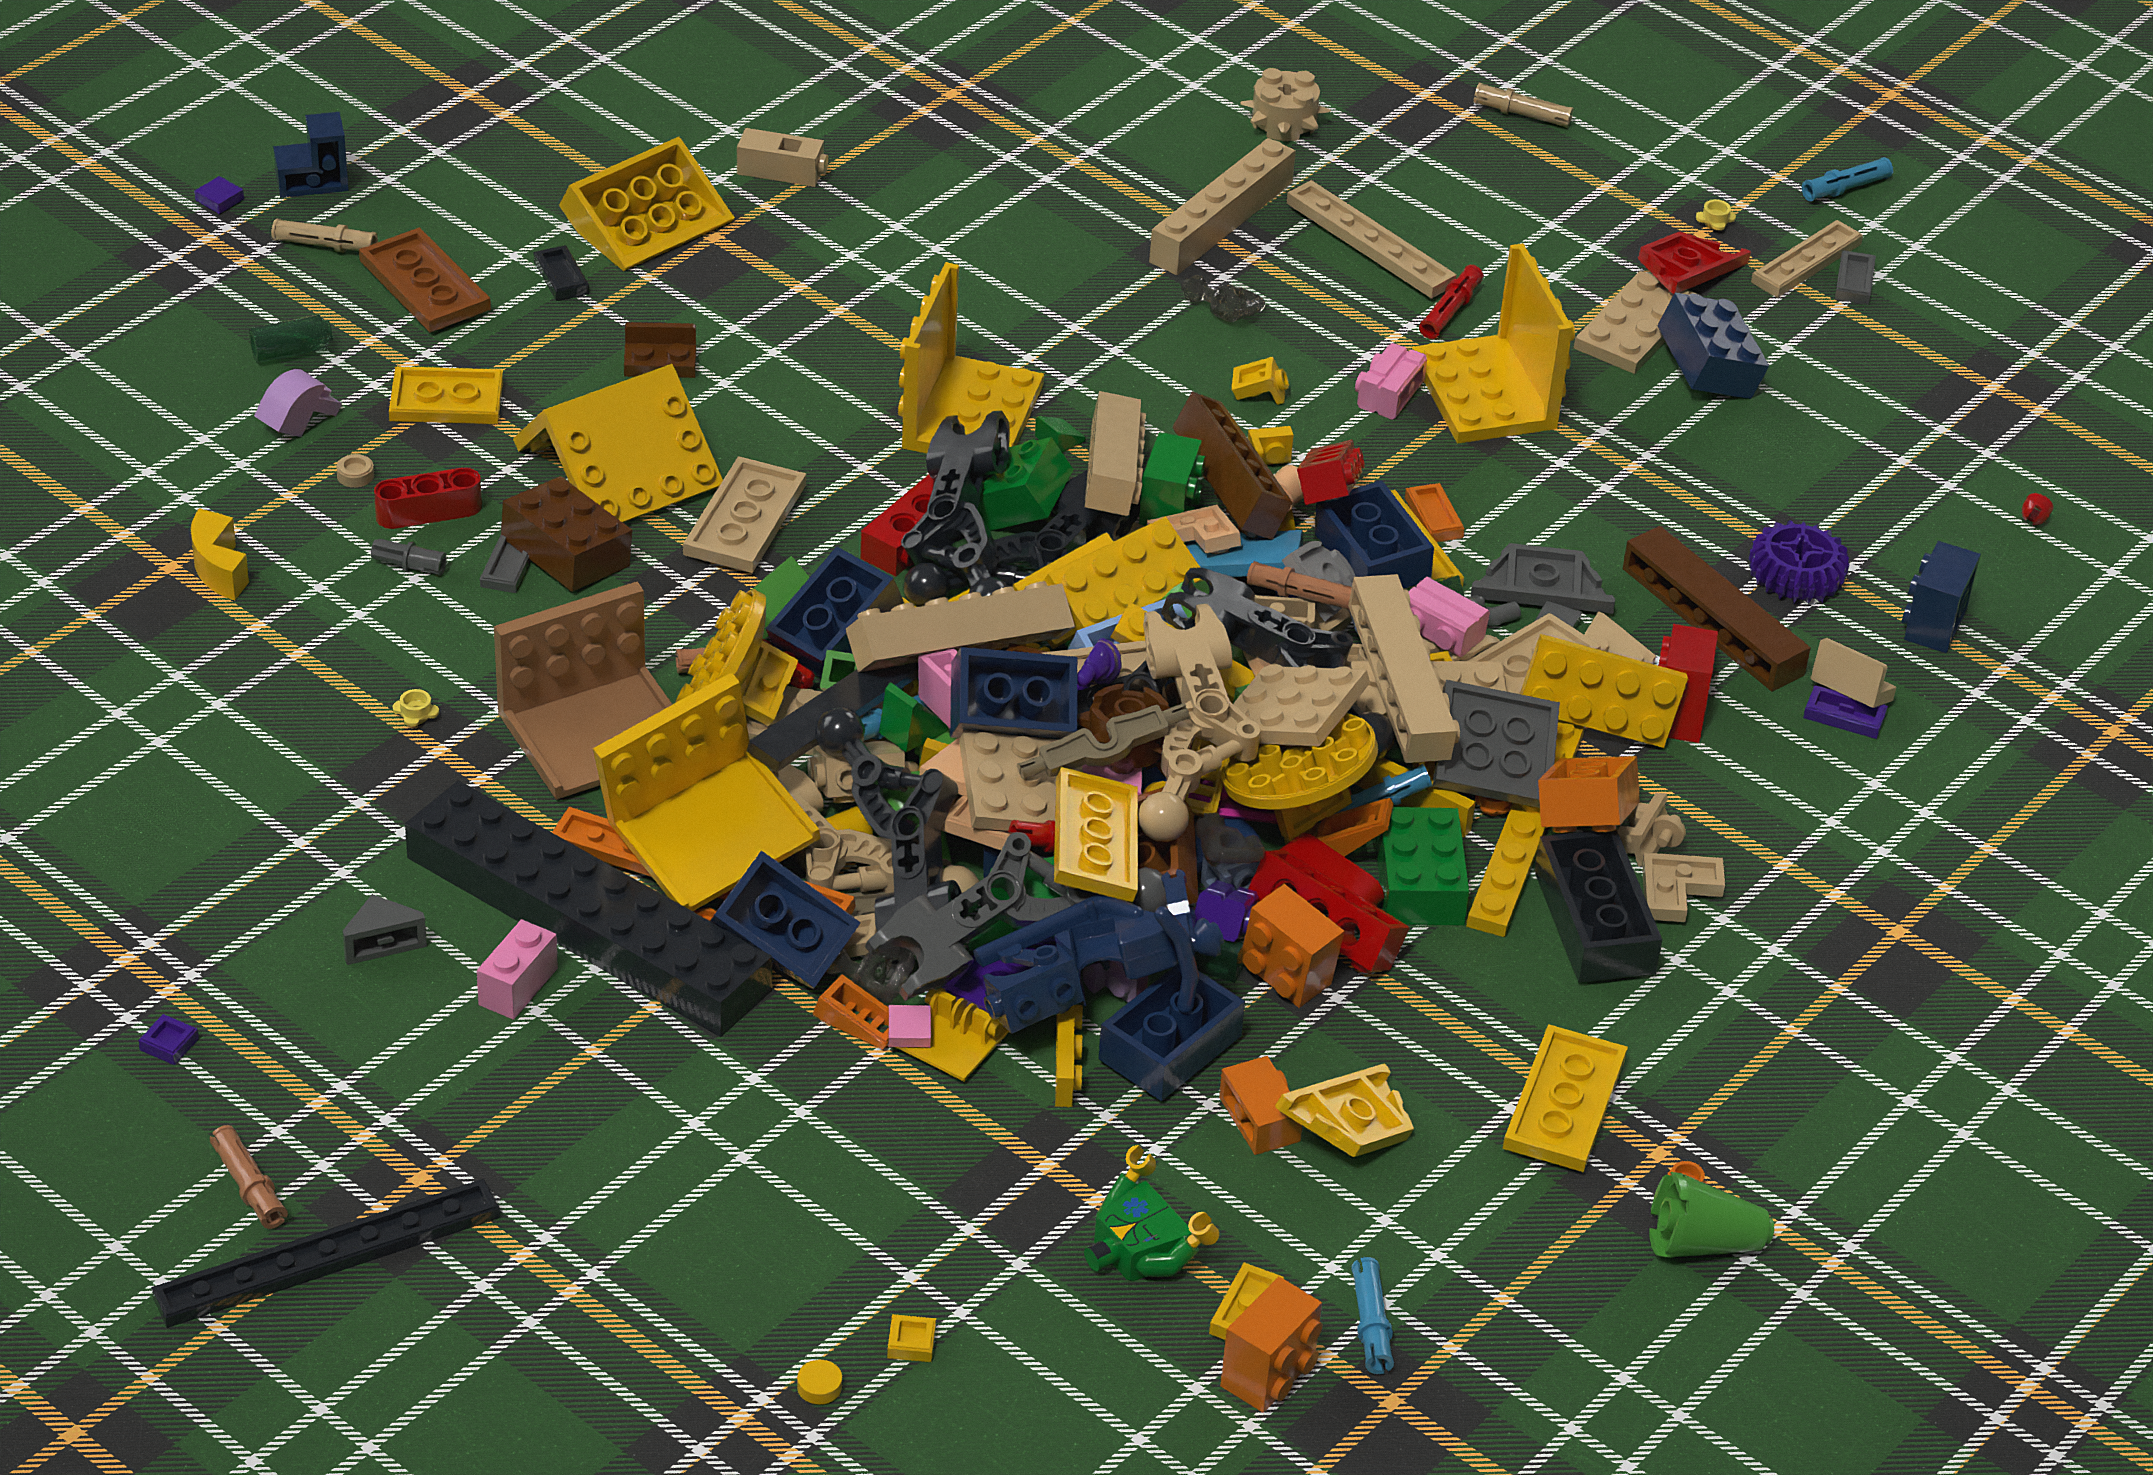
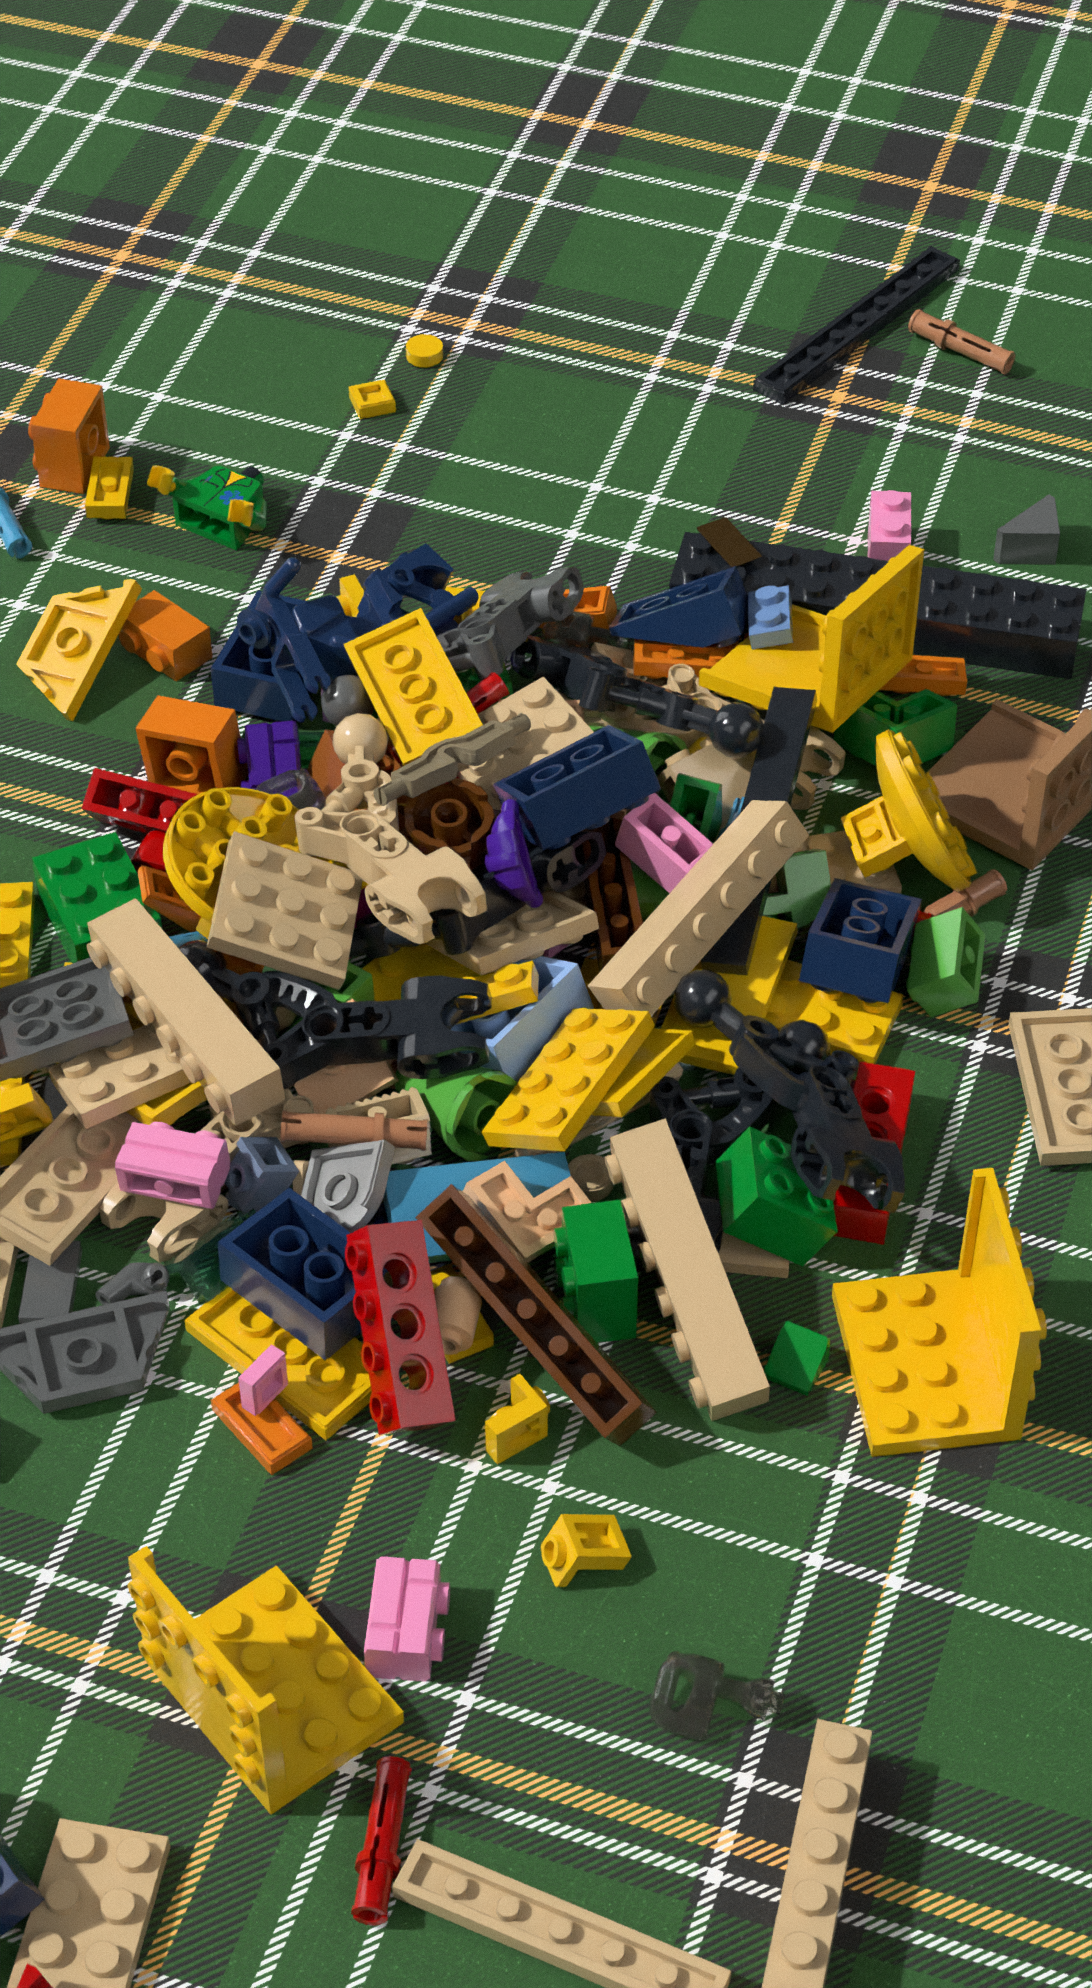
camera: 160 degrees right, 5 degrees up
(693, 963) = (728, 542): none -> dark brown sticker
(712, 876) = (770, 616): none -> medium blue plate
(1429, 502) = (263, 1380): none -> bright pink tile

